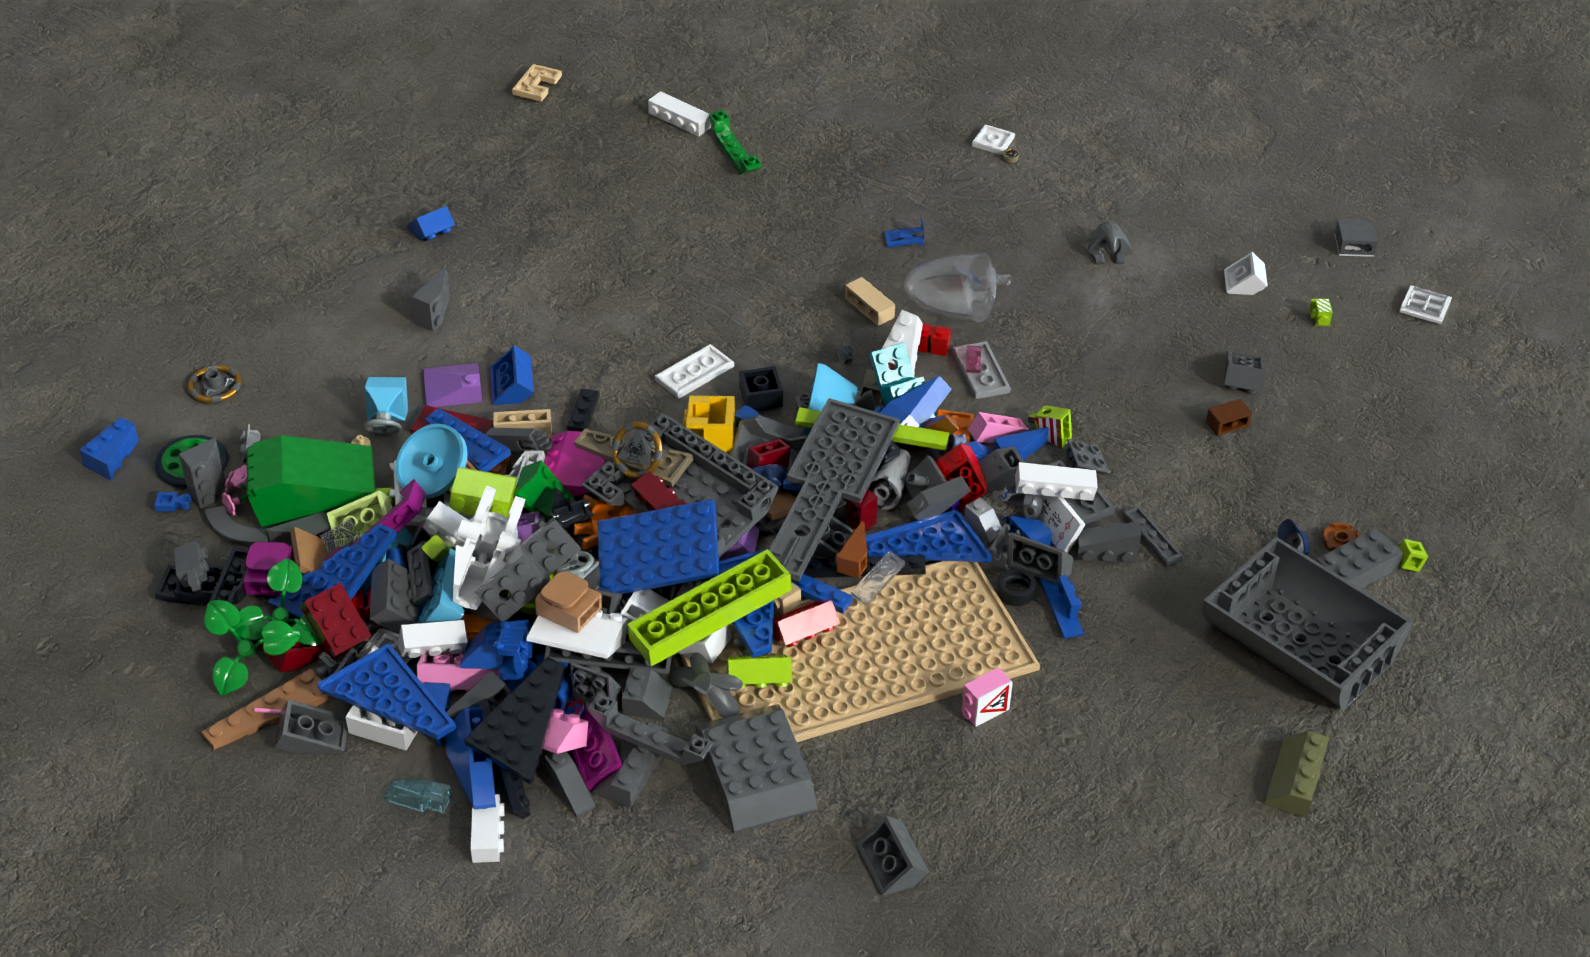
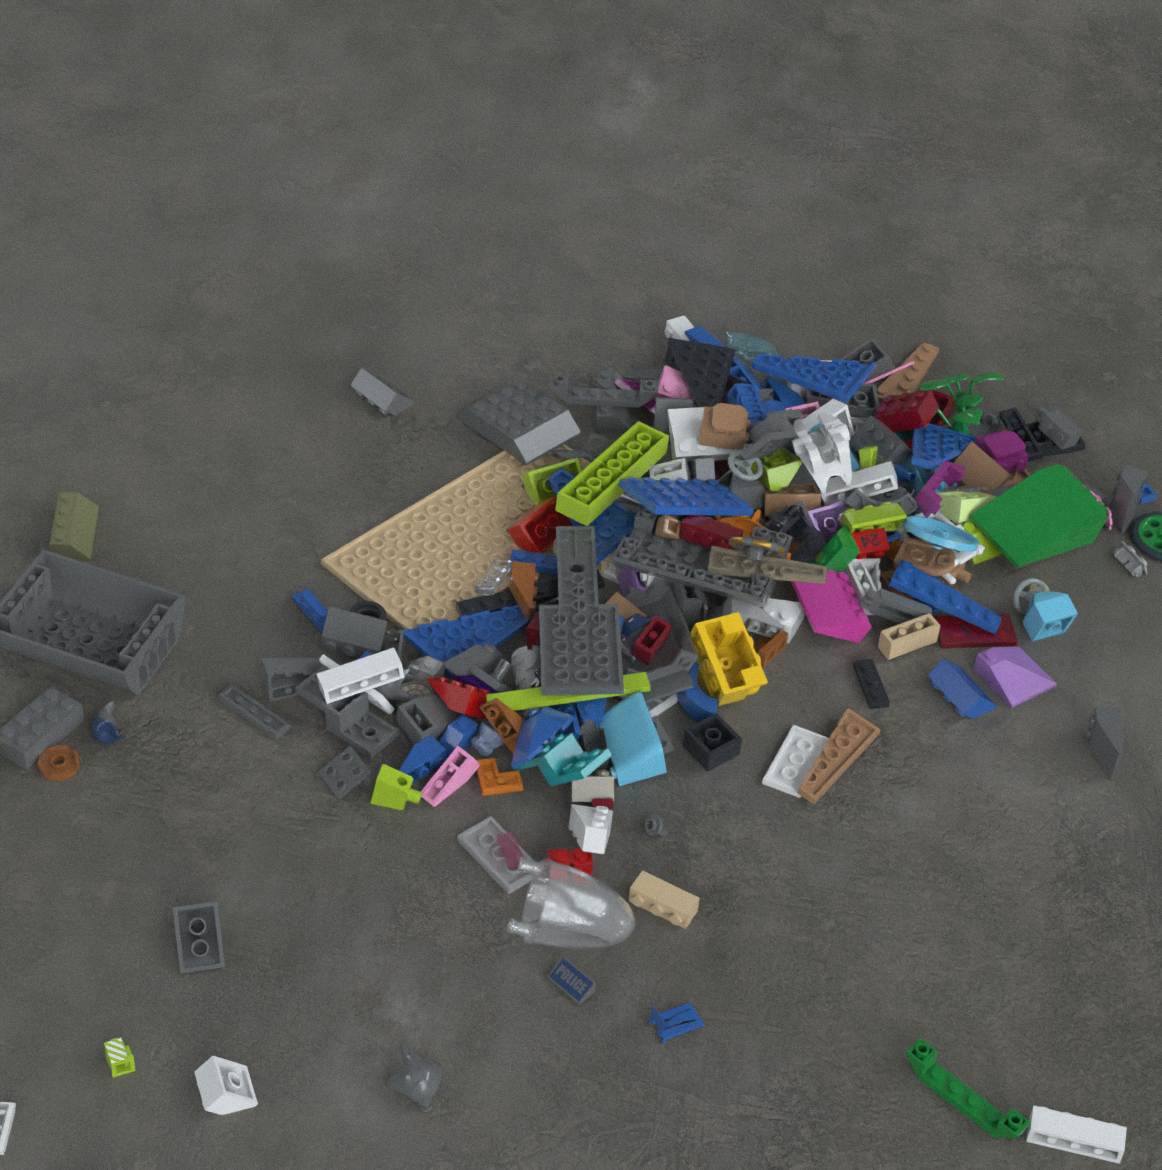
camera: 155 degrees right, 0 degrees up
(645, 365) = (842, 749): none -> medium nougat wing
(986, 697) = (354, 506): piece -> none
(1229, 417) = (204, 865): reddish brown brick -> none

